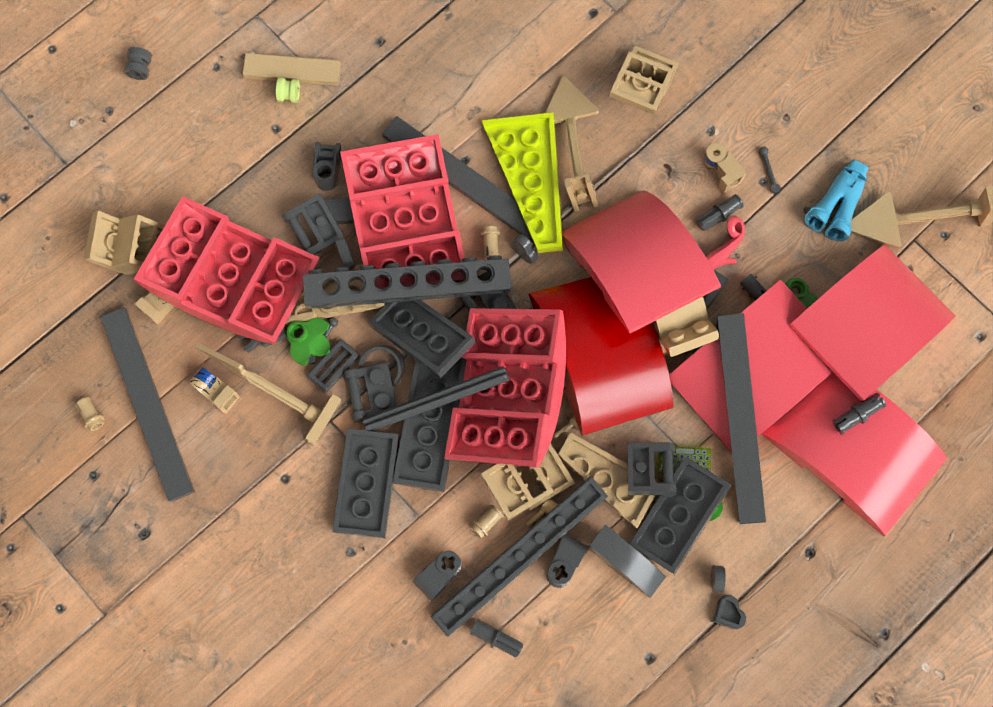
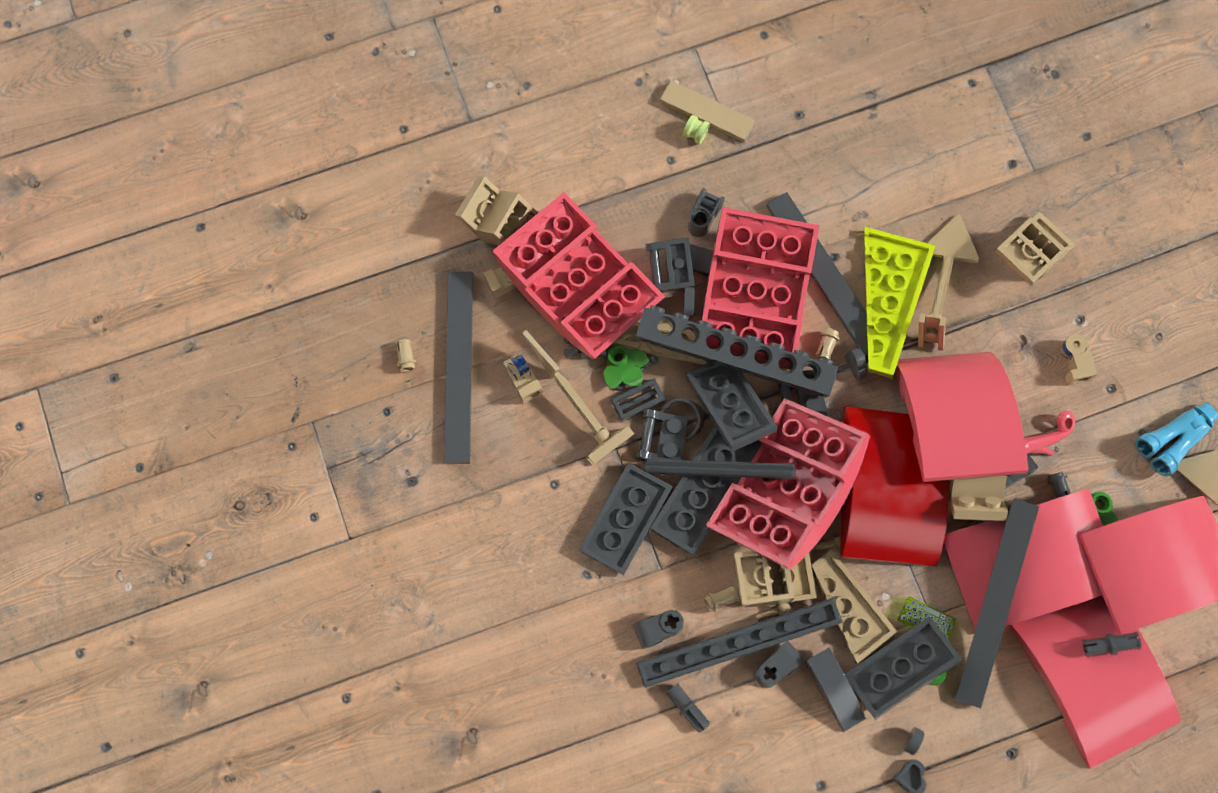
camera: 25 degrees right, 0 degrees up
(138, 63) = (569, 53): dark grey wheel -> none
(642, 472) = (884, 610): dark grey plate -> none
(719, 212) = (1056, 402): dark grey axle -> none
(775, 188) = (1119, 399): dark grey hinge -> none

